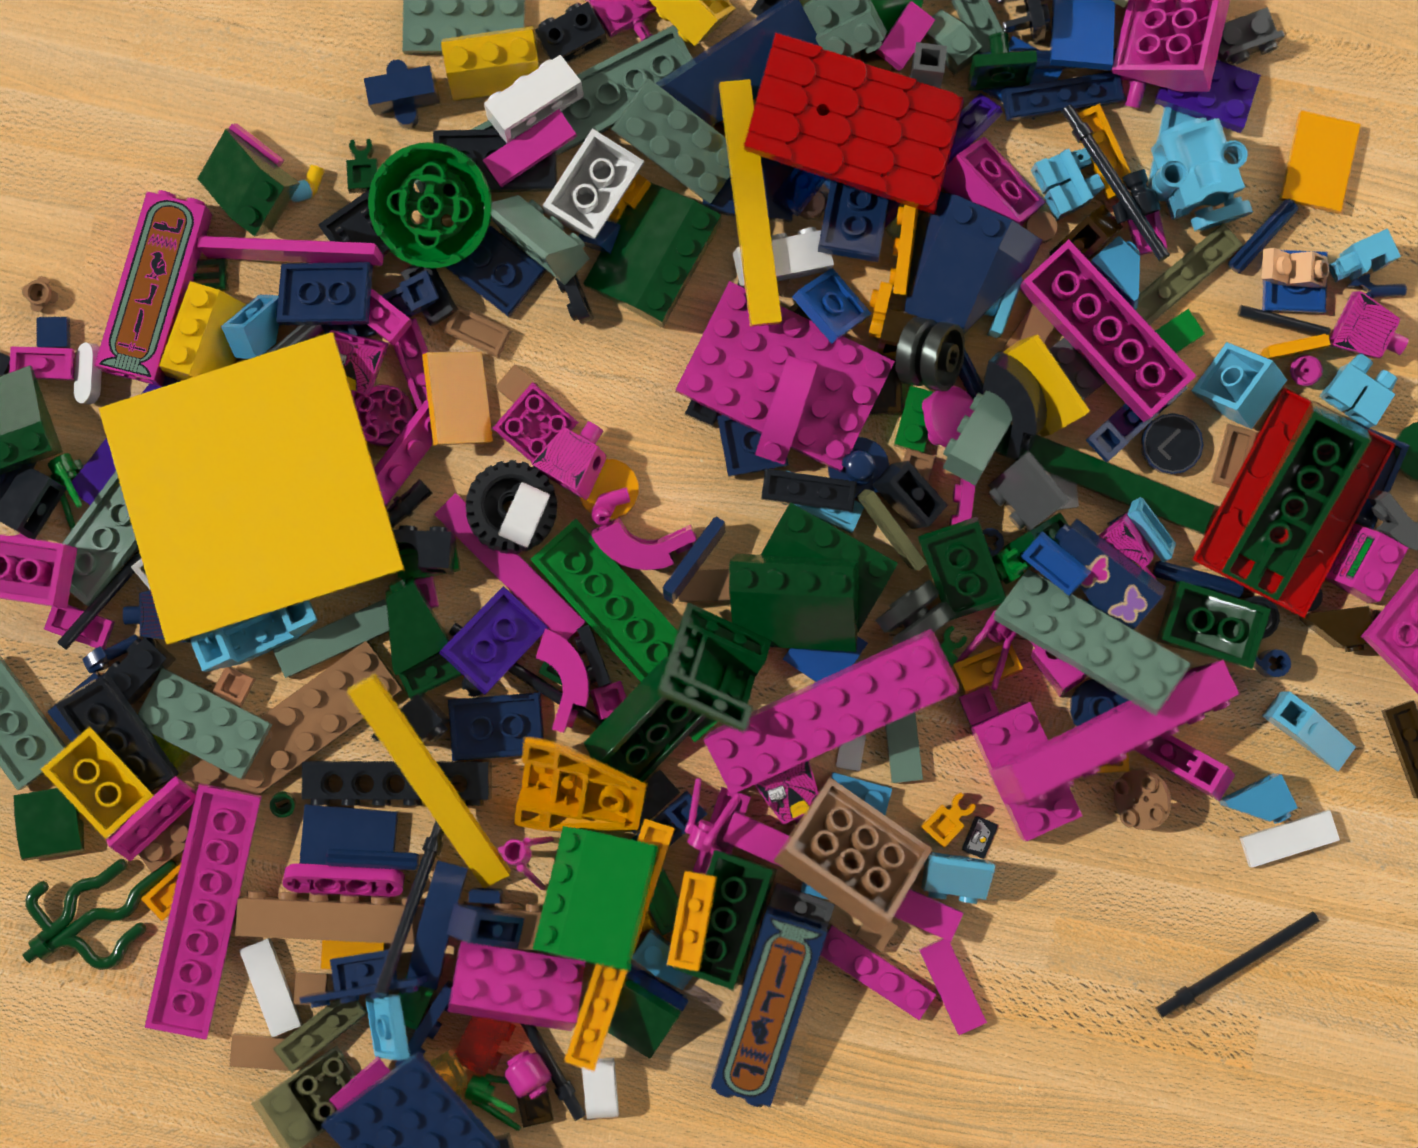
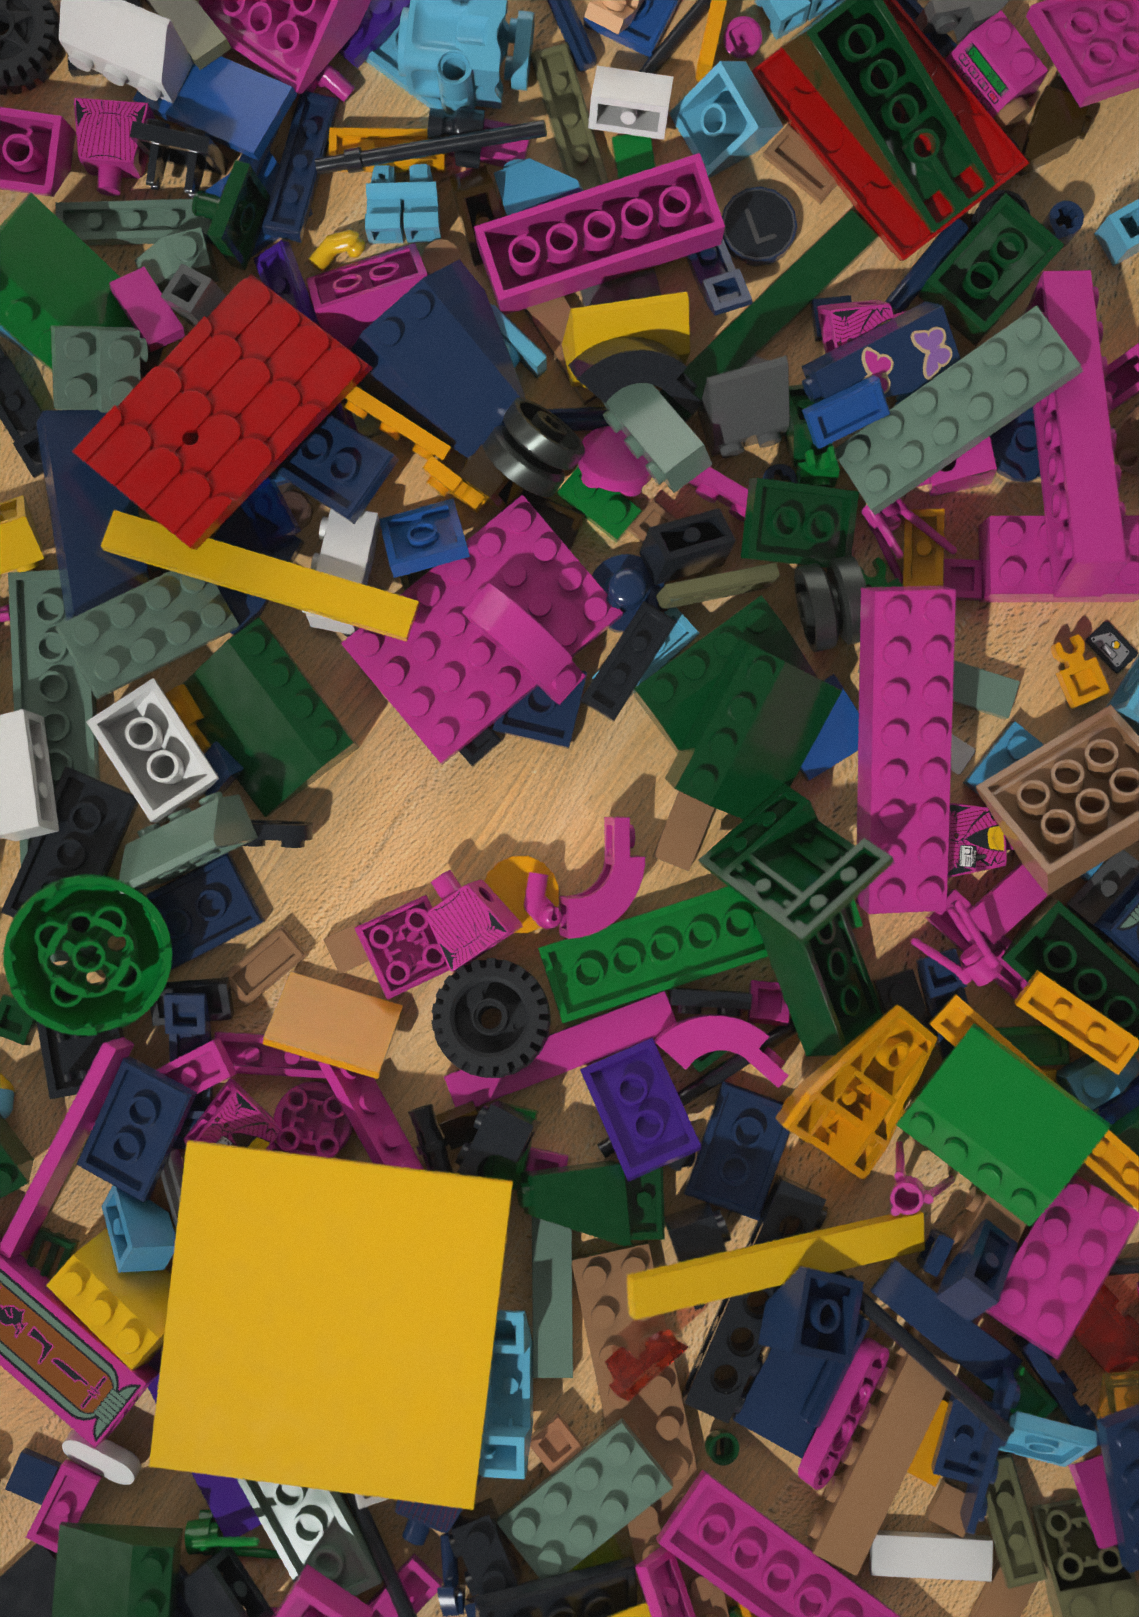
camera: 70 degrees left, 0 degrees up
(307, 718) = (635, 1373): none -> clear red hinge
(403, 824) = (813, 1315): none -> dark blue slope
(426, 516) = (458, 1124): none -> dark brown tile
(524, 514) = (510, 1007): white beam -> none
(529, 148) = (75, 806): dark pink tile -> none
(694, 559) = (650, 831): dark blue tile -> none
(1017, 146) = (335, 244): none -> yellow arm
(1152, 529) = (848, 290): medium azure tile -> none
(1217, 310) = (630, 102): none -> white brick
(1337, 591) = (1012, 114): none -> medium nougat tile

